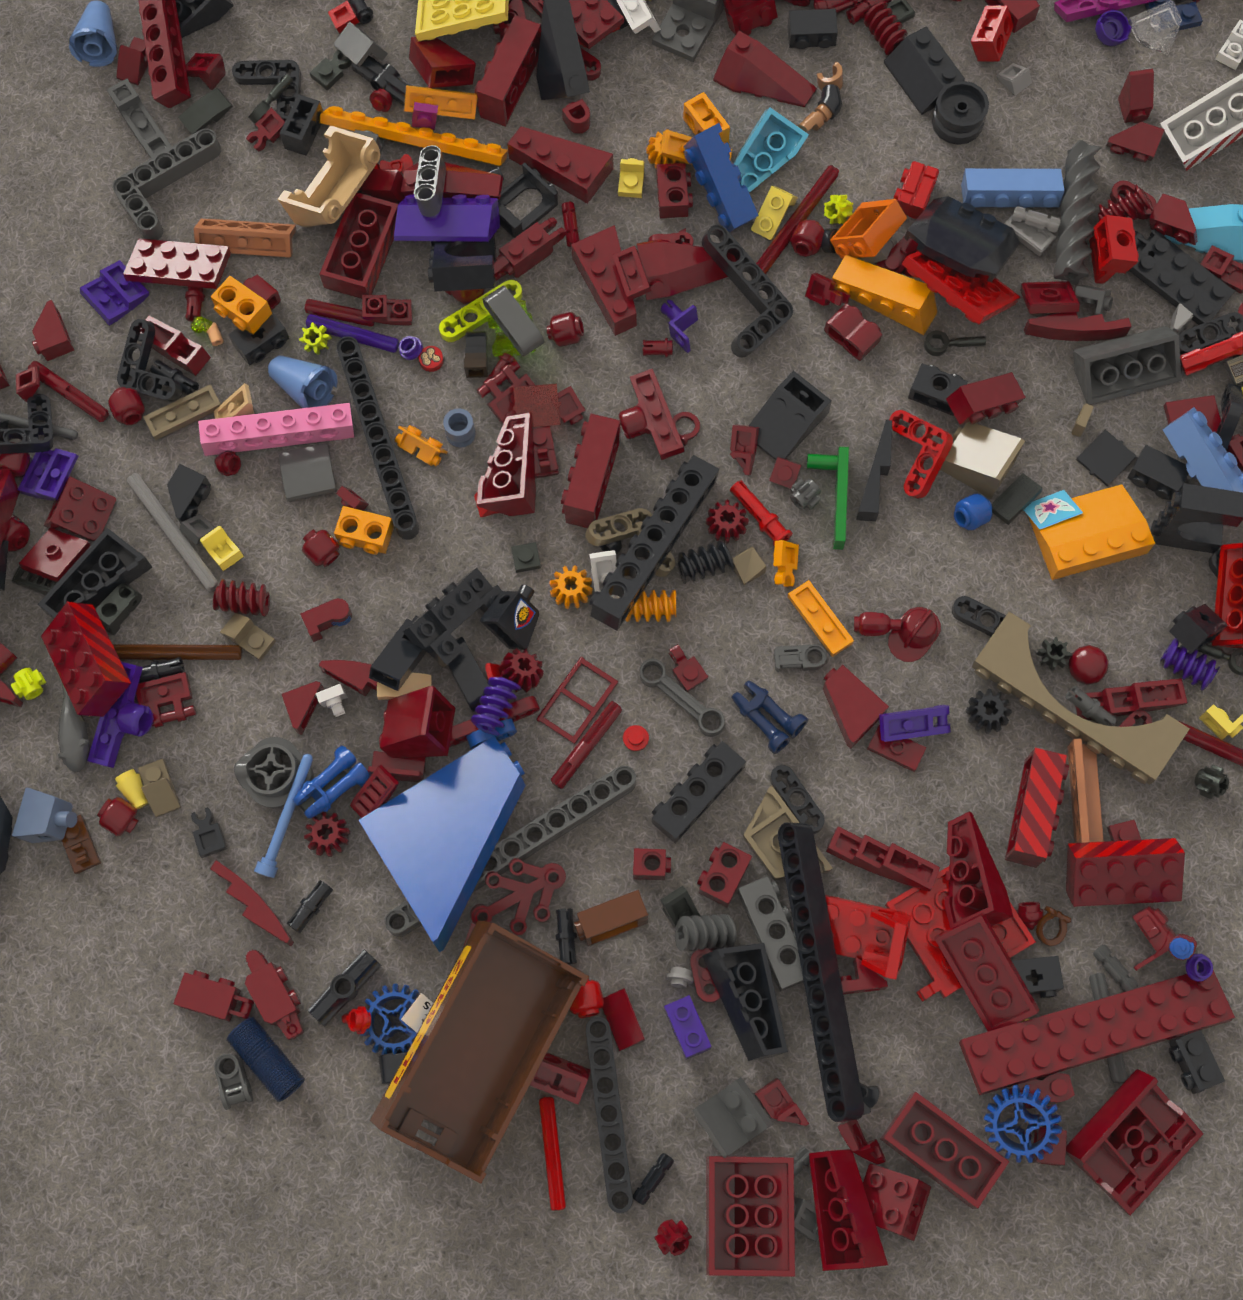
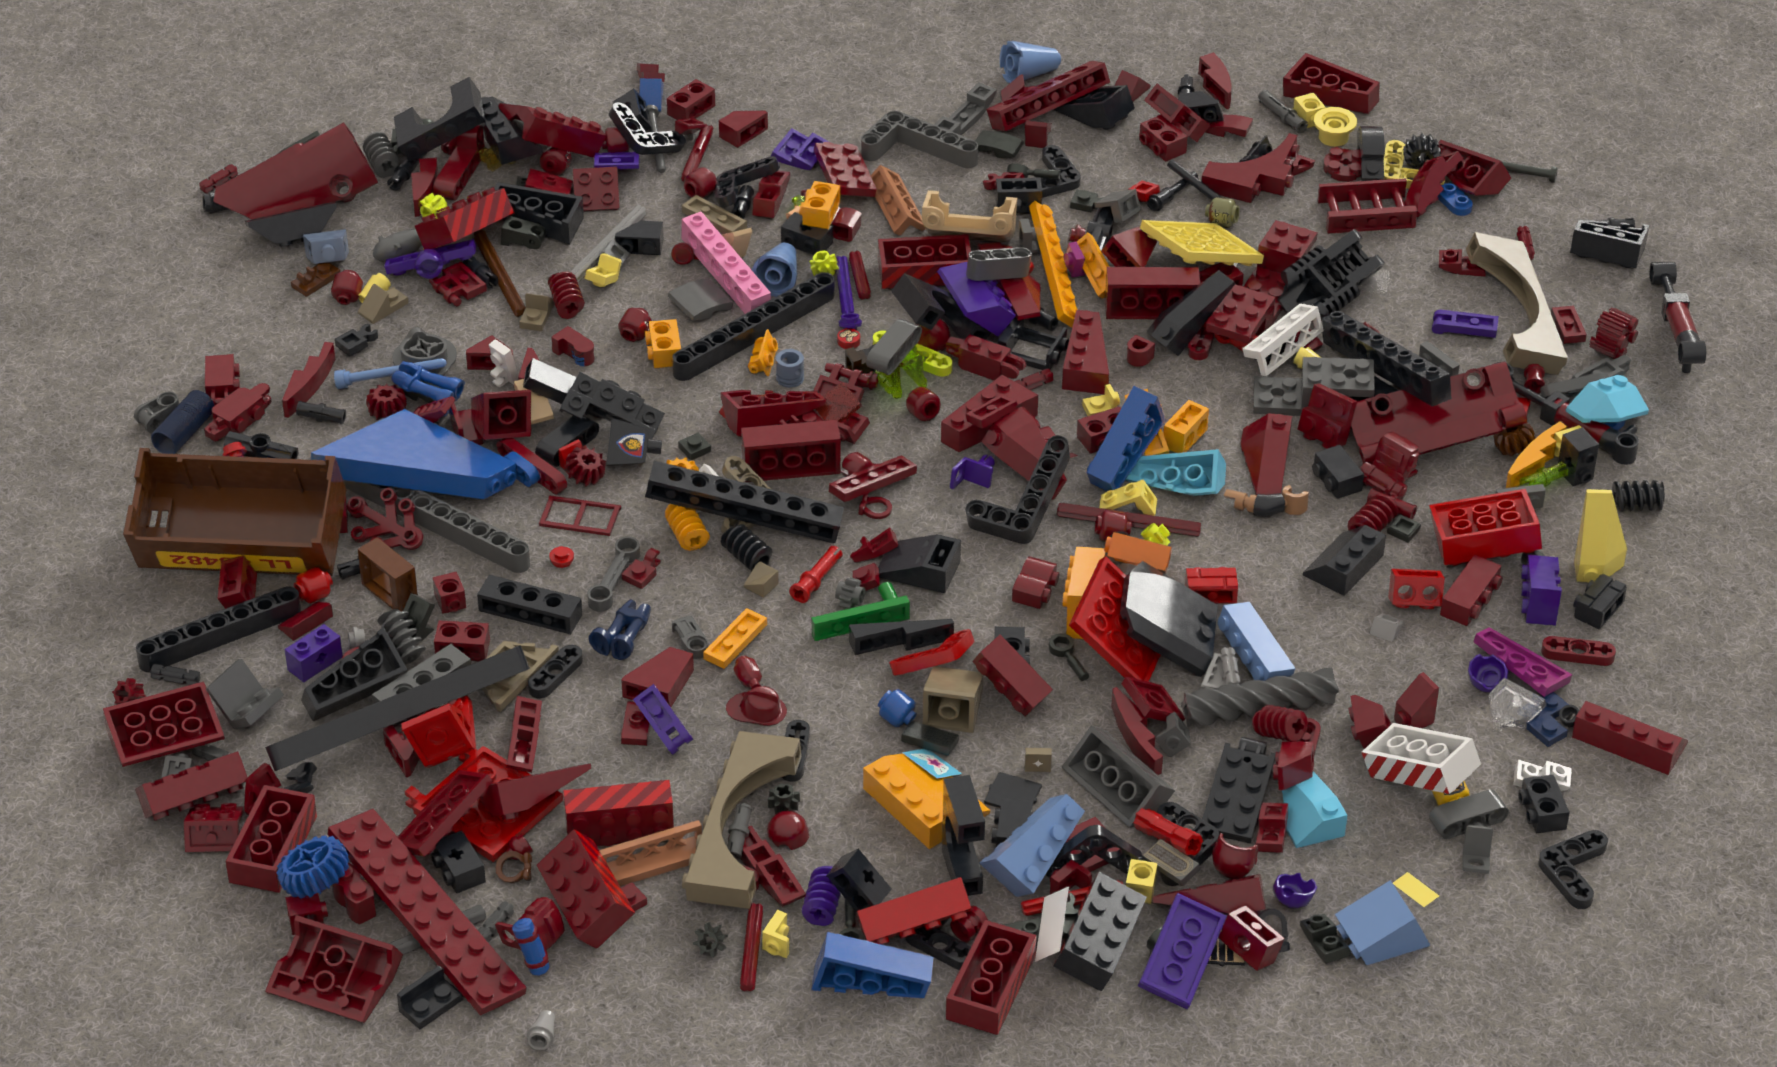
camera: 65 degrees right, 30 degrees down
(351, 499) = (689, 328): dark red plate -> none
(386, 311) = (875, 296): dark red slope -> none
(493, 704) = (541, 447): dark purple piece -> none
(552, 1154) = (172, 609): red axle -> none
(586, 745) = (540, 529): dark red axle -> none
(658, 347) = (942, 467): dark red pin -> none
(724, 529) = (795, 553): dark red gear -> none
(779, 1103) = (273, 731): dark red slope -> none
(786, 560) = (780, 598): light orange plate -> none
(822, 291) = (1063, 550): dark red plate -> none
(960, 112) = (1312, 588): black wheel -> none
(998, 714) = (702, 769): black gear -> none
(1113, 247) = (1220, 730): red brick -> none
(1180, 319) = (1188, 799): light grey slope -> none
(1205, 967) = (511, 960): dark purple plate -> none

